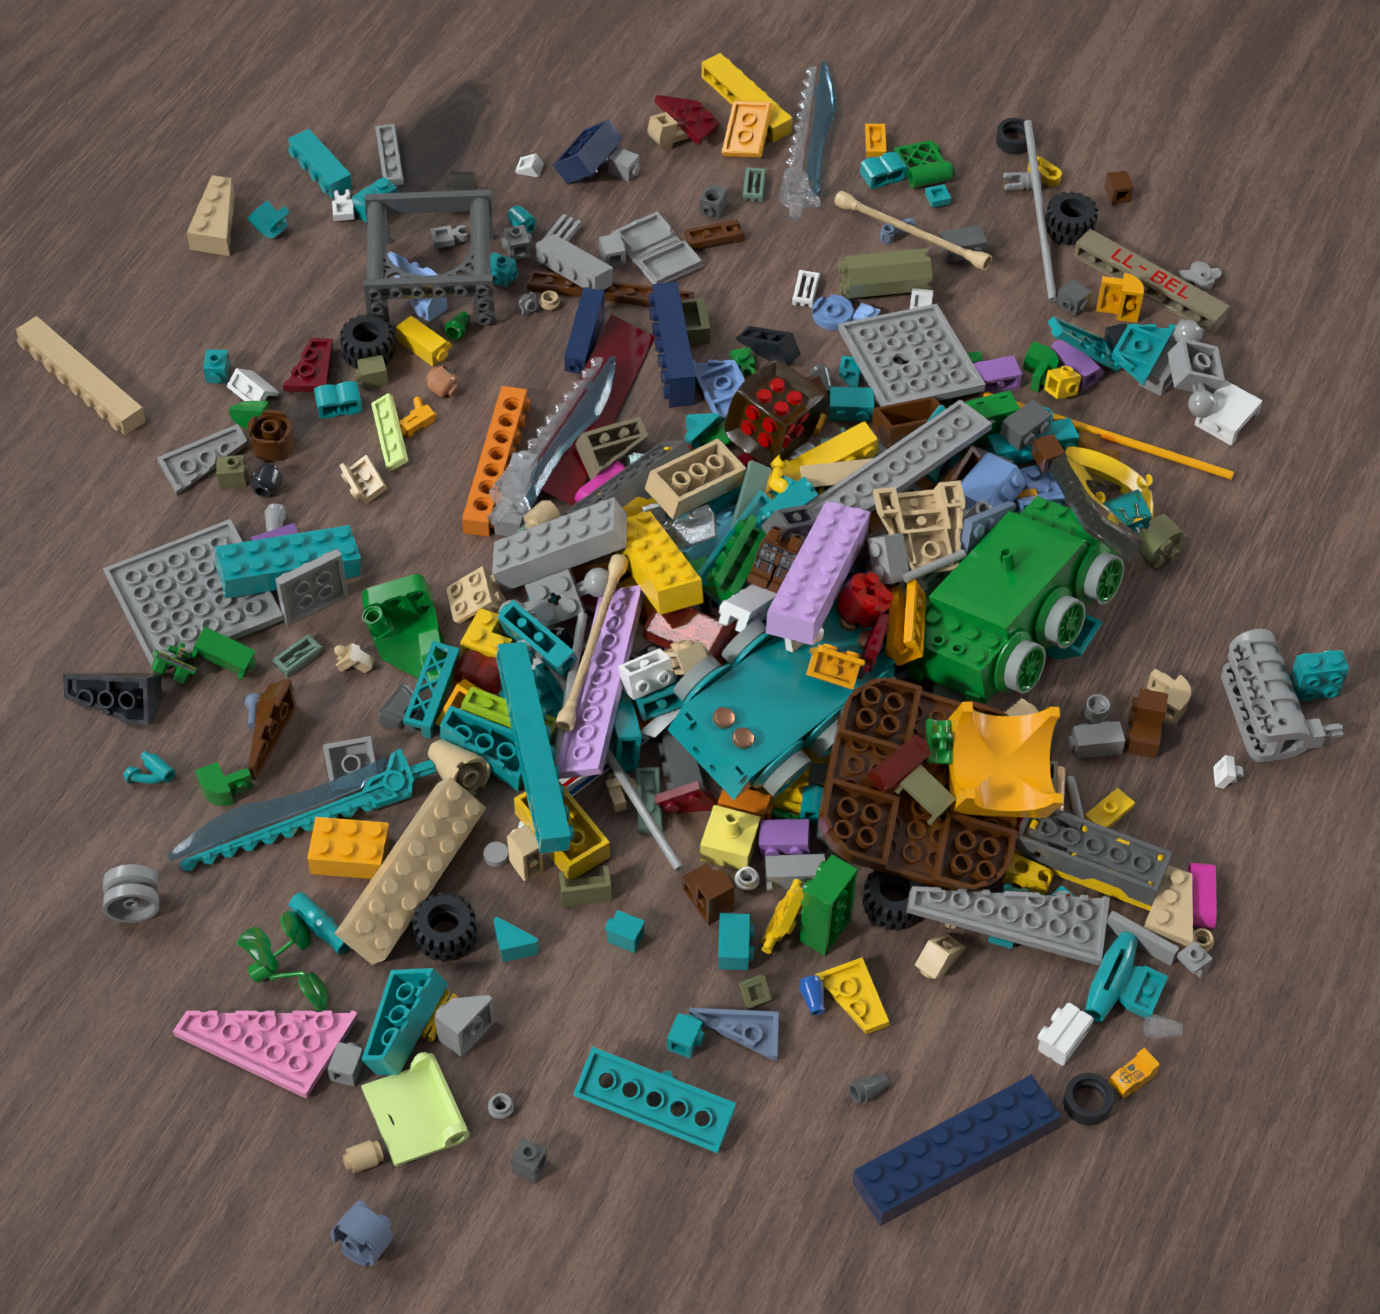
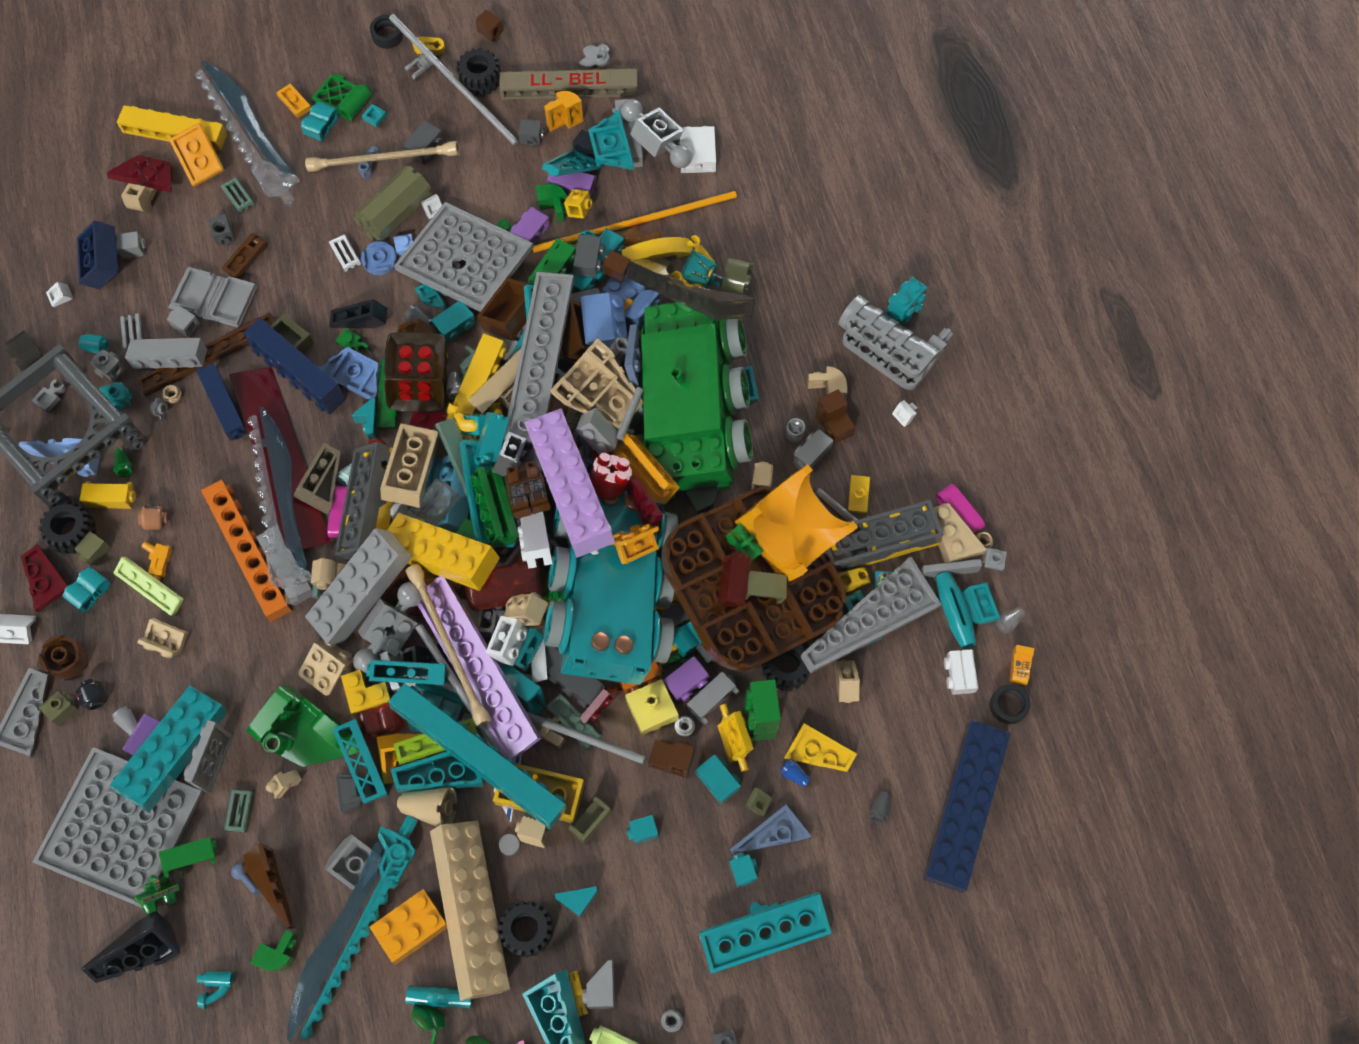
camera: 40 degrees left, 15 degrees up
(244, 411) = (27, 651): green brick -> none

